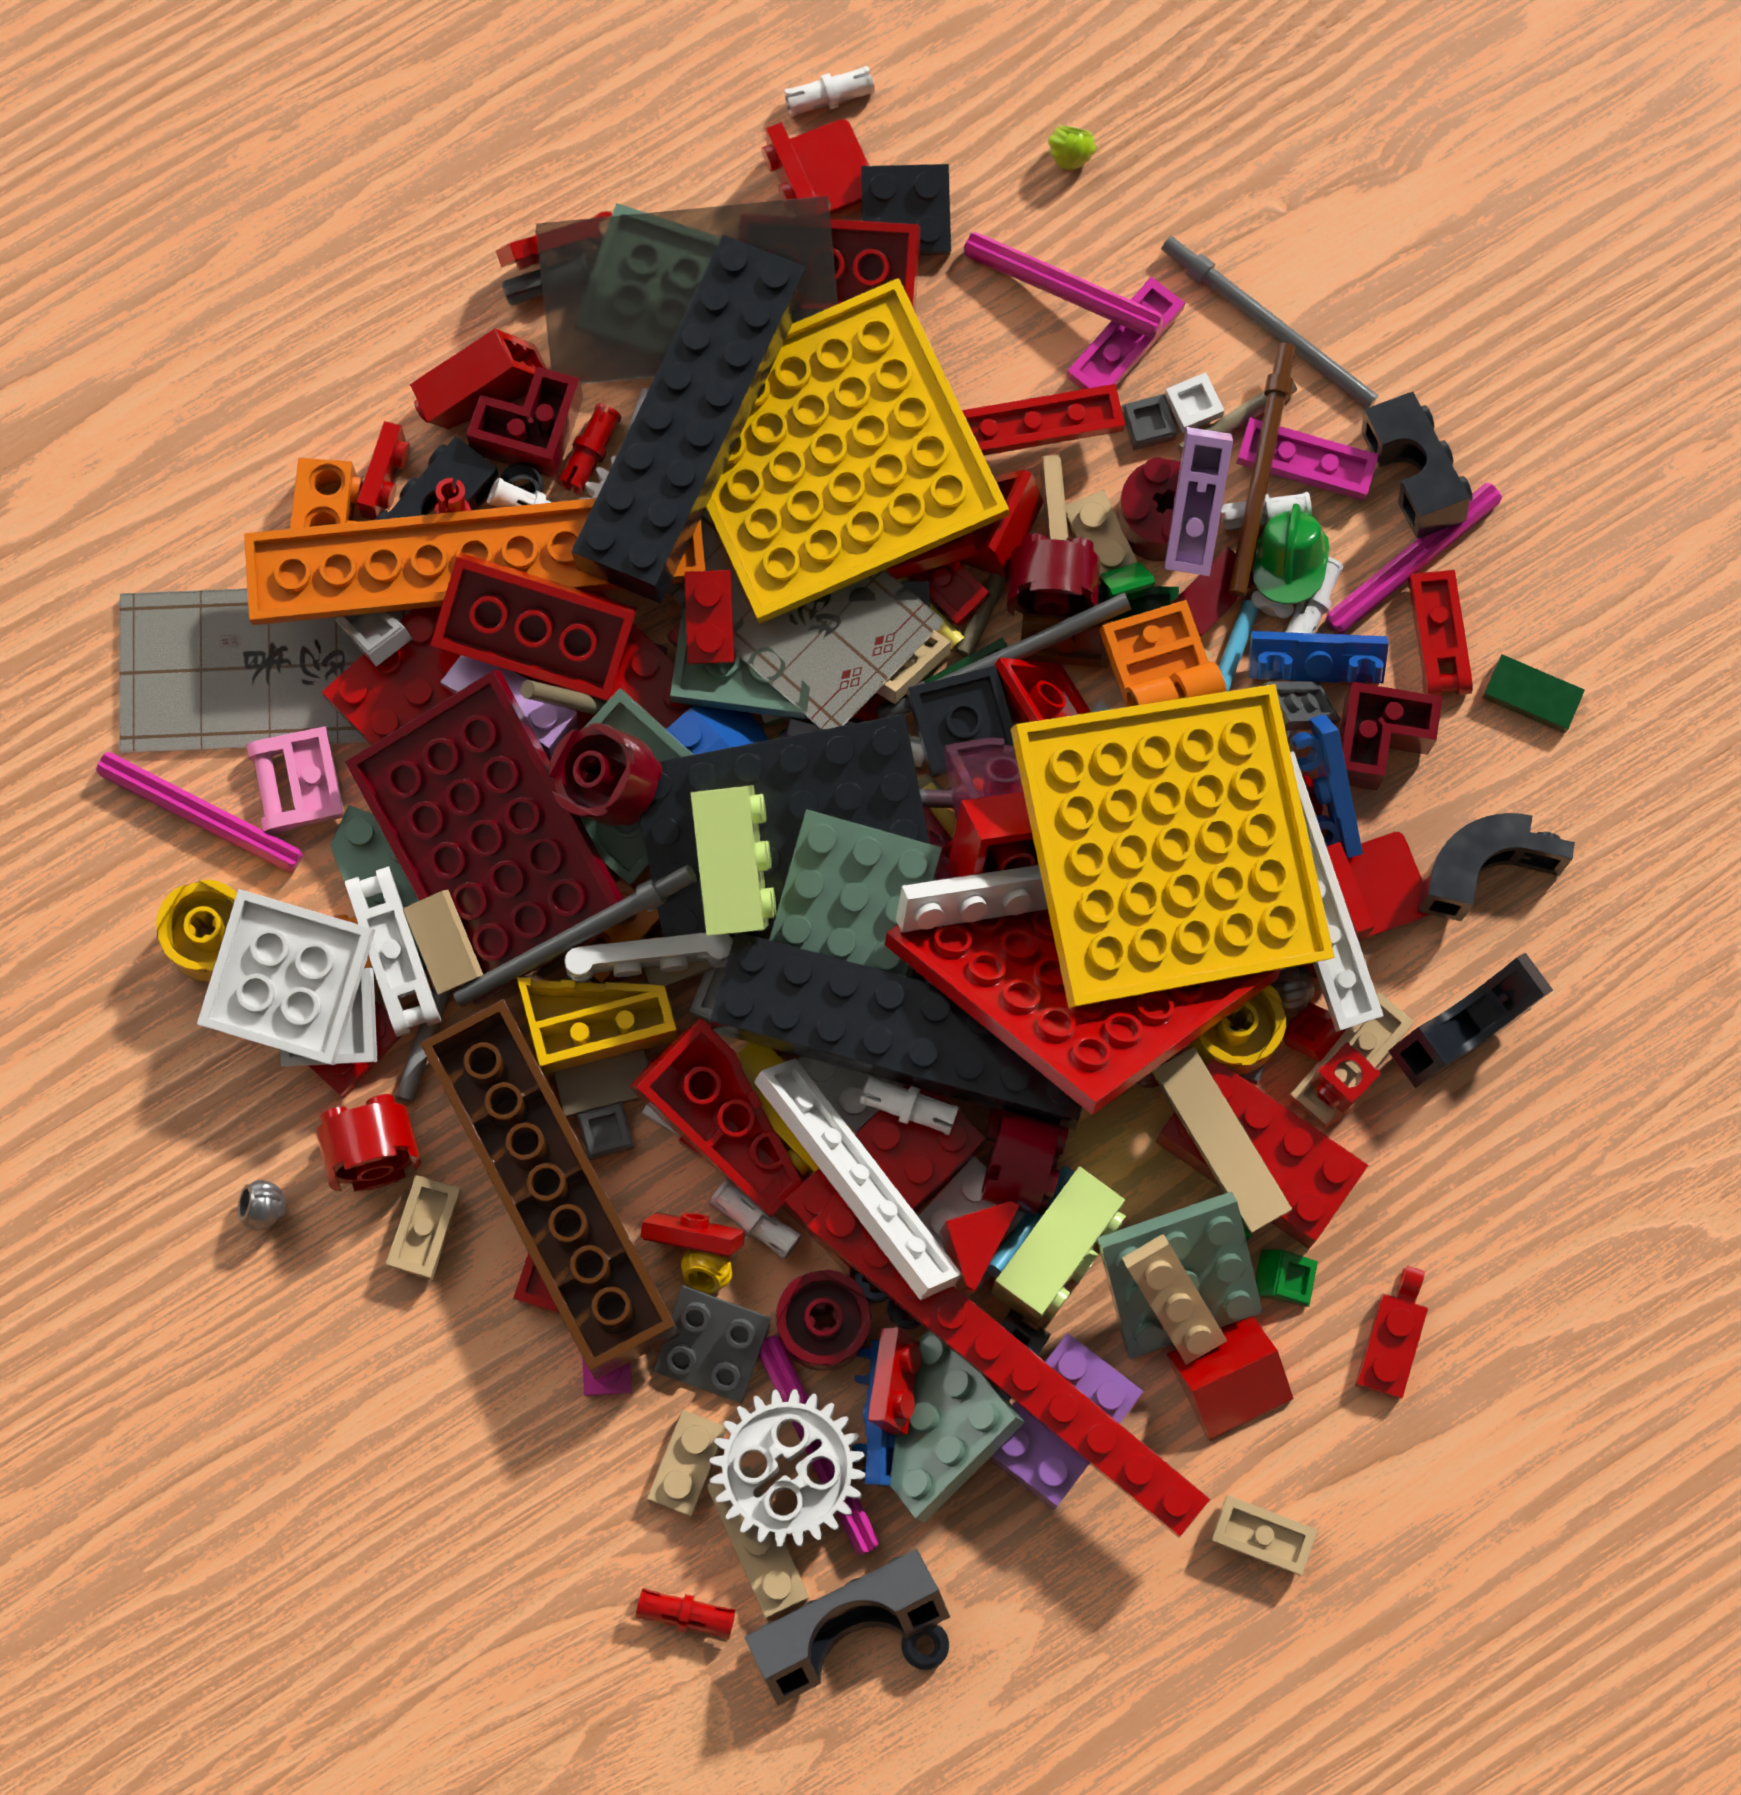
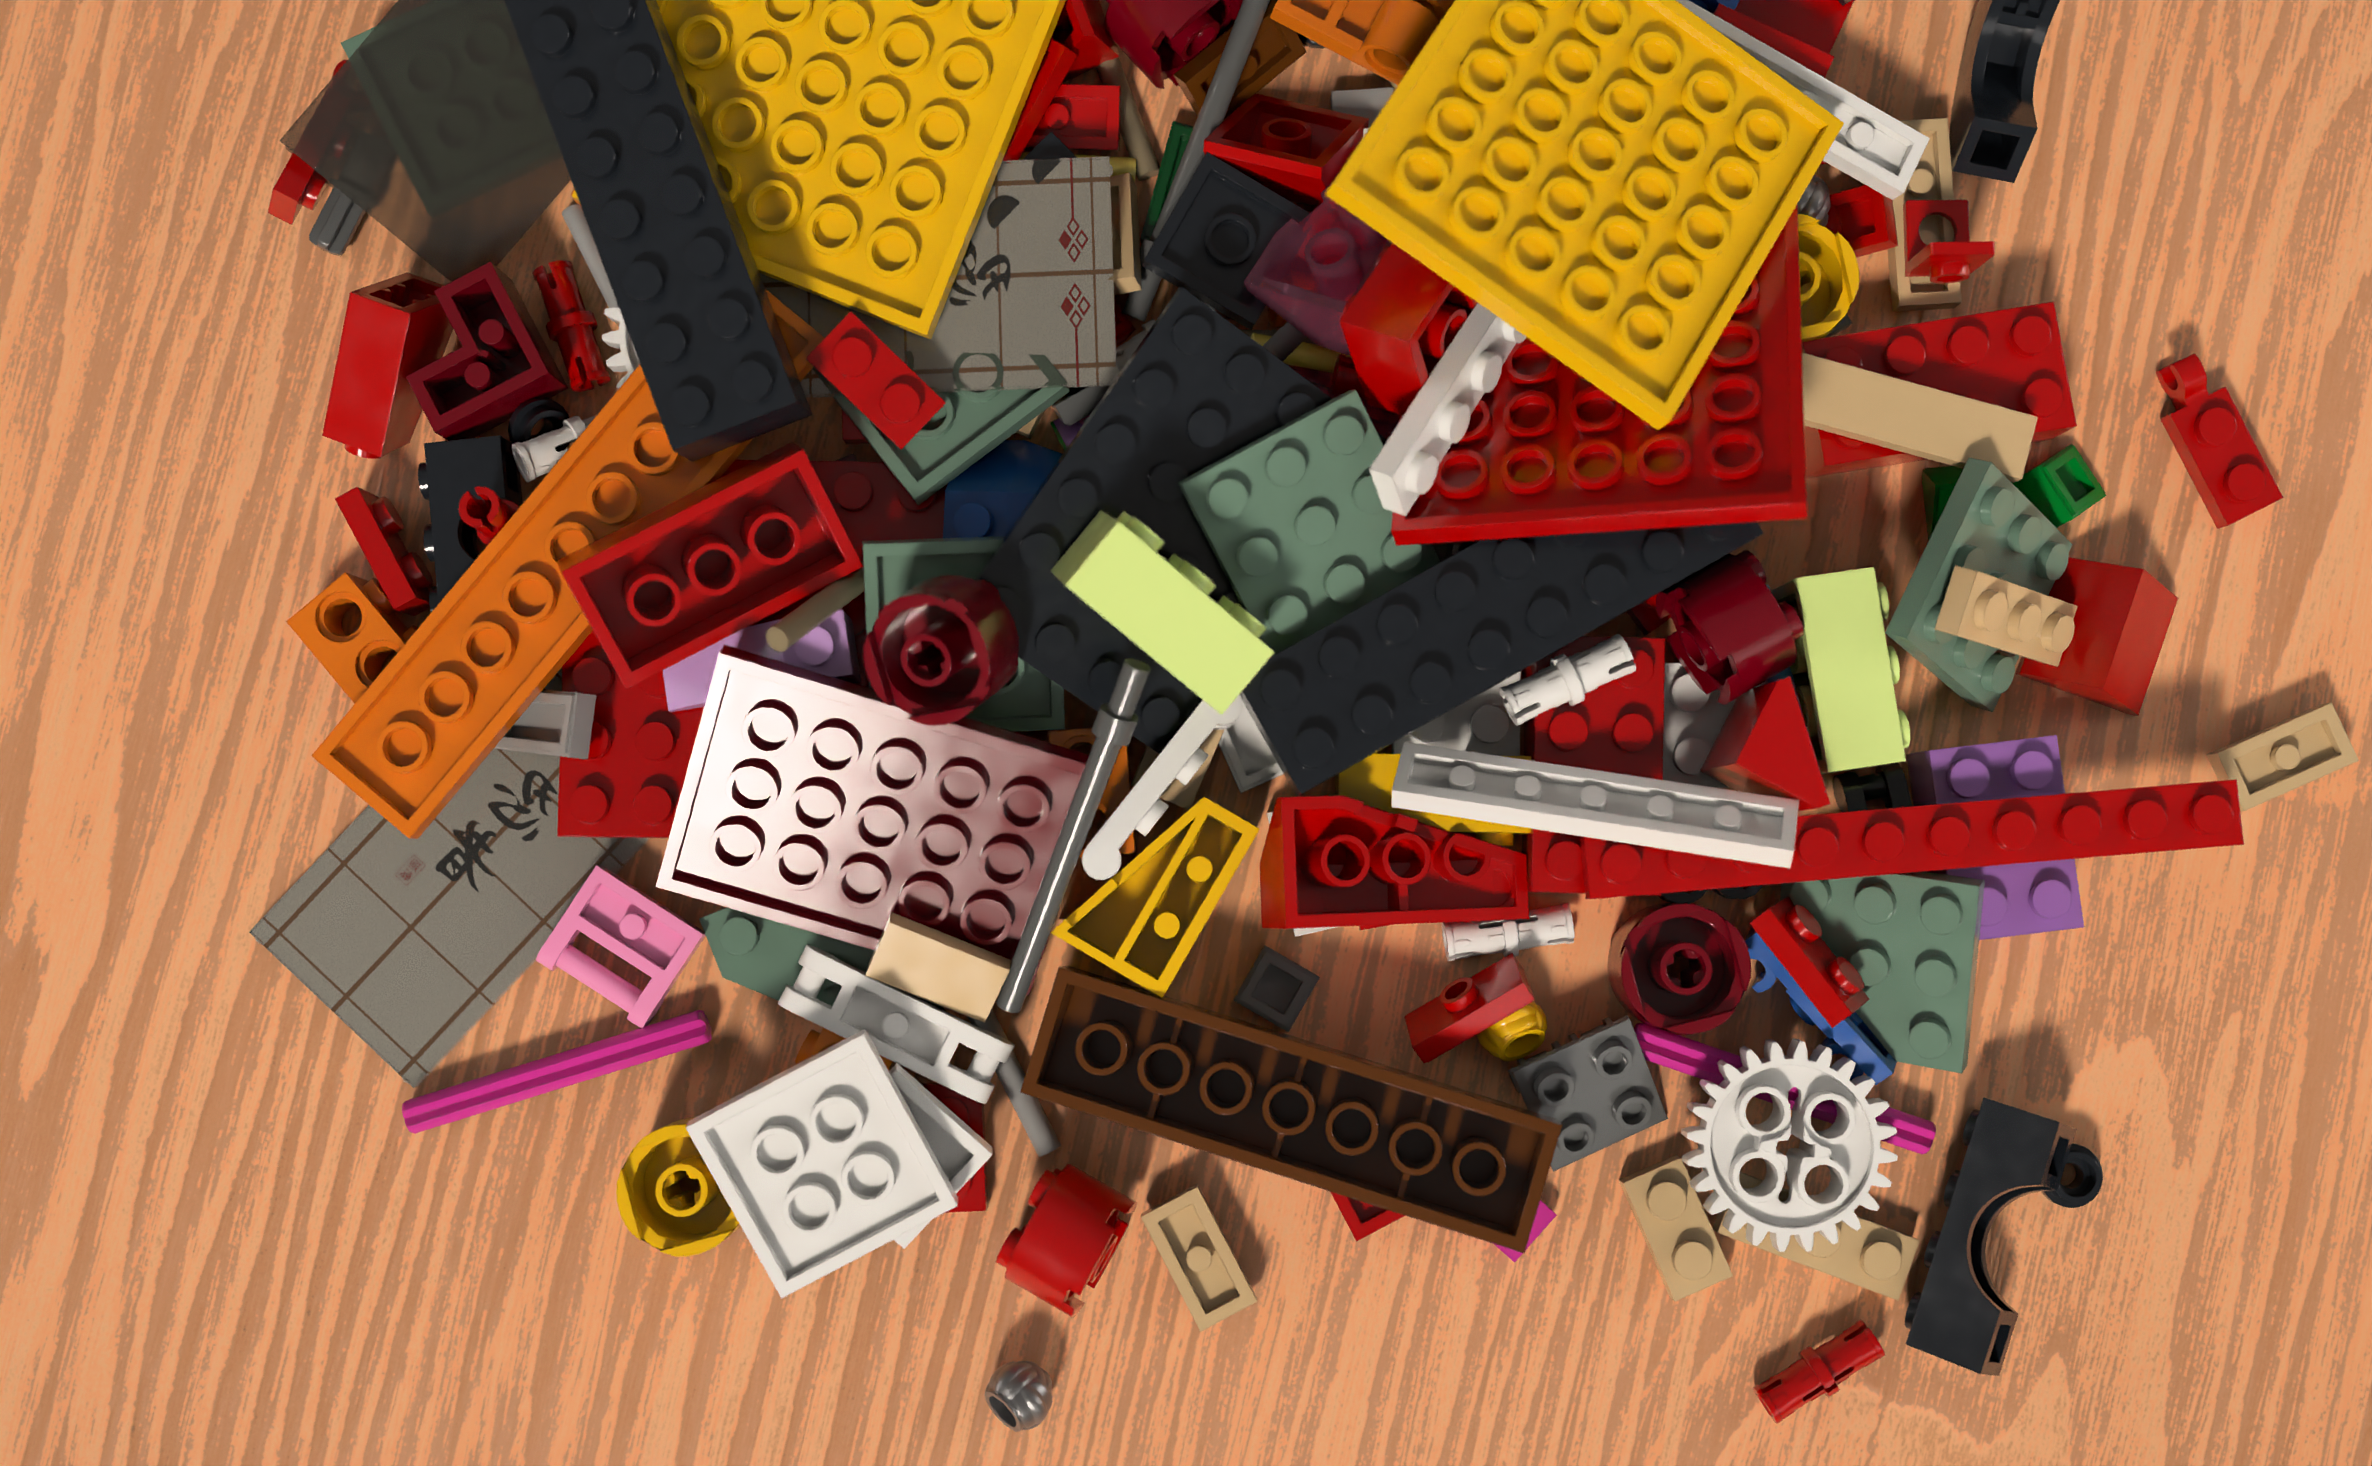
camera: 40 degrees left, 10 degrees up
(599, 1082) = (1225, 947): dark tan tile -> none

